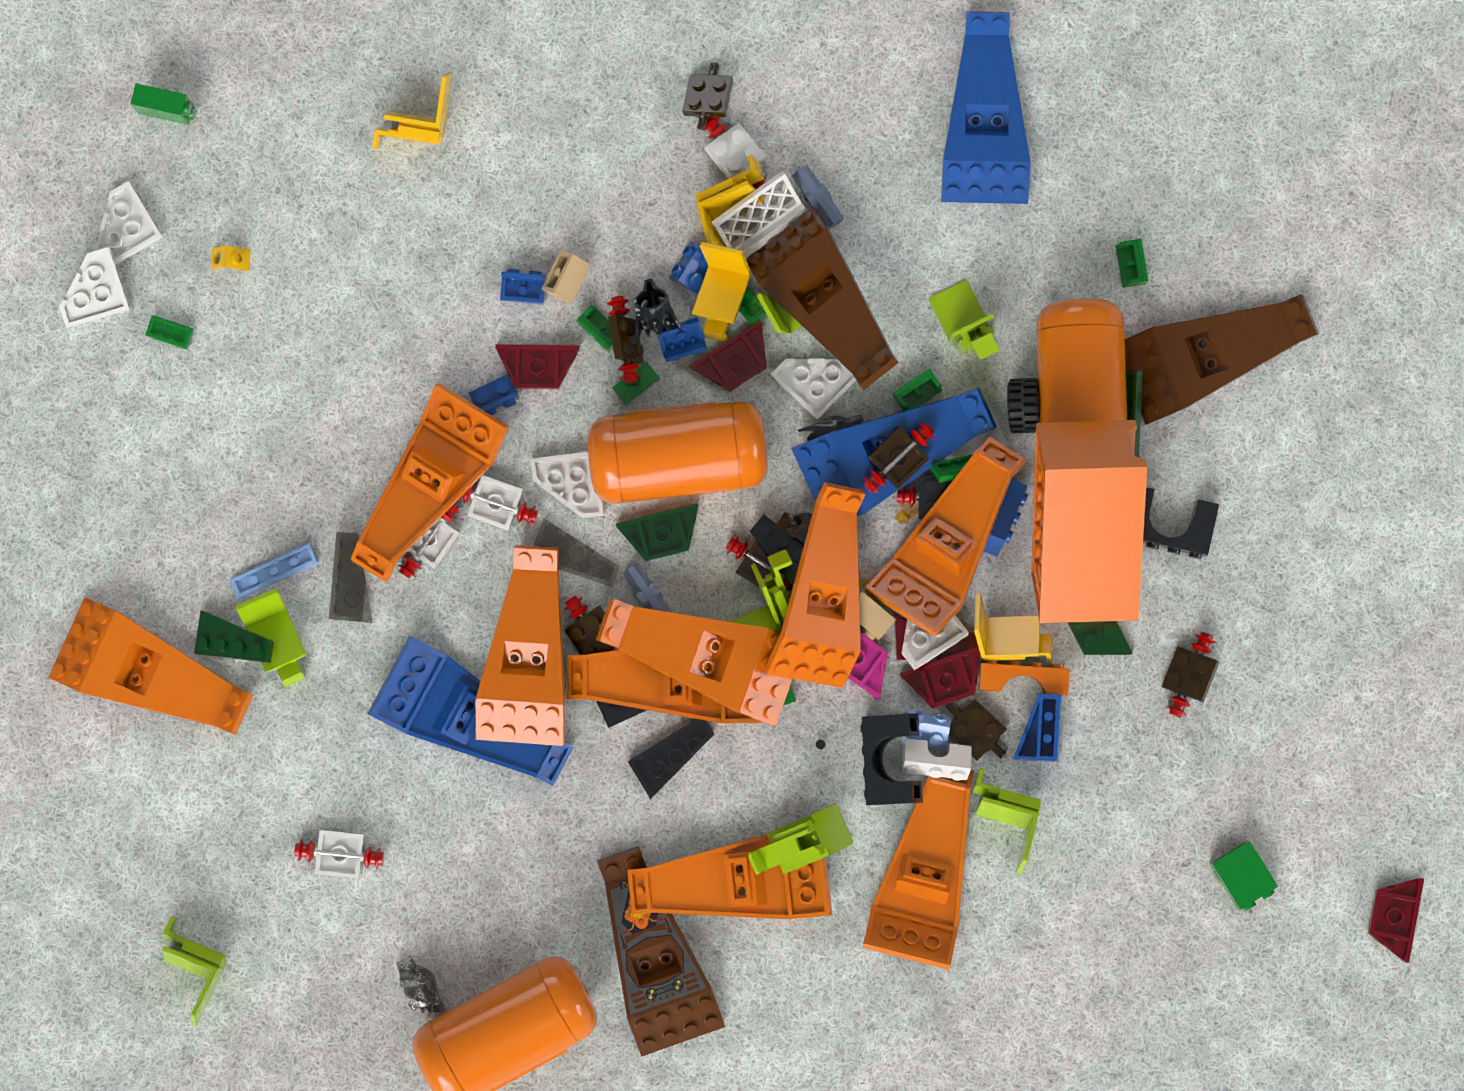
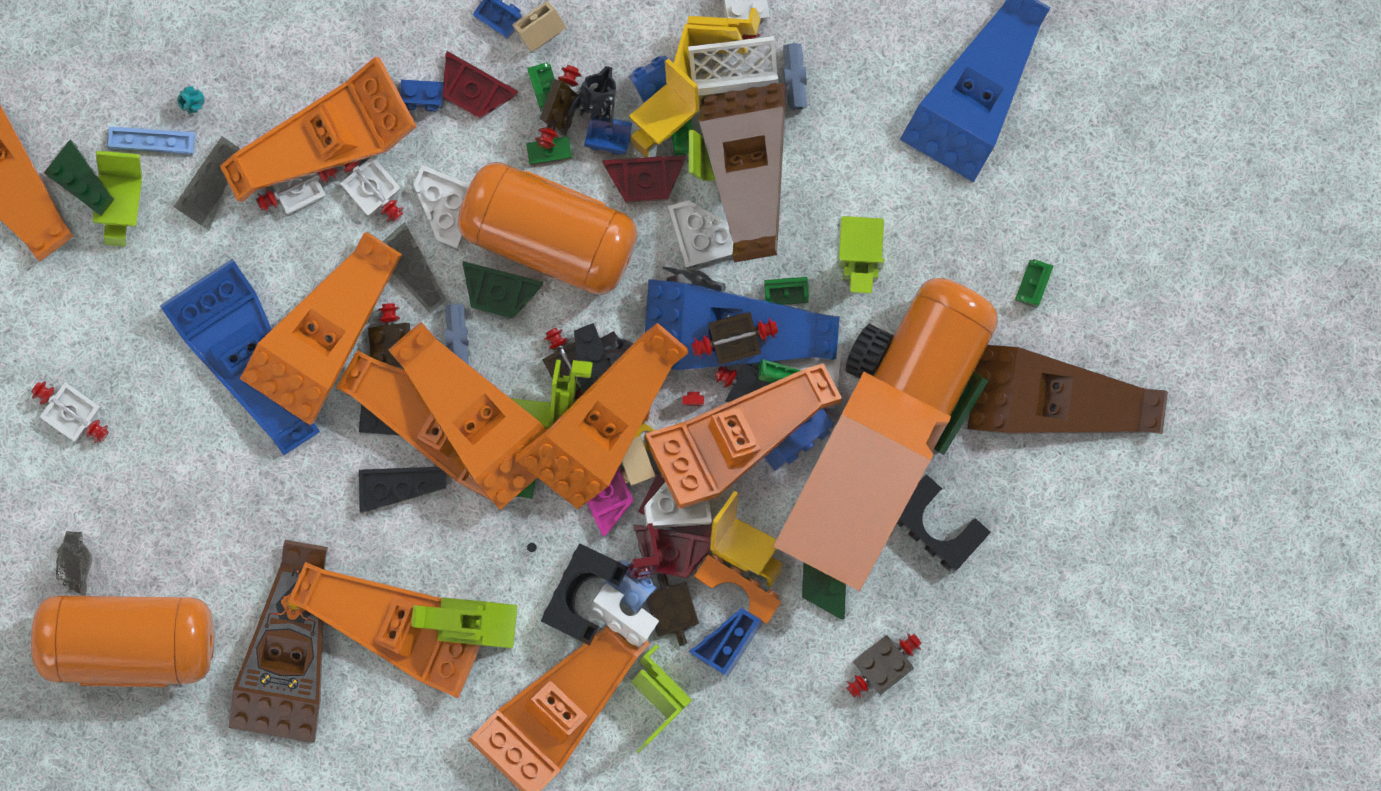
camera: 30 degrees right, 0 degrees up
(290, 514) = (190, 99): none -> teal gear
(889, 532) = (693, 399): none -> red plate
(903, 517) = (713, 392): clear yellow hand -> none
(936, 691) = (643, 567): none -> dark red bracket

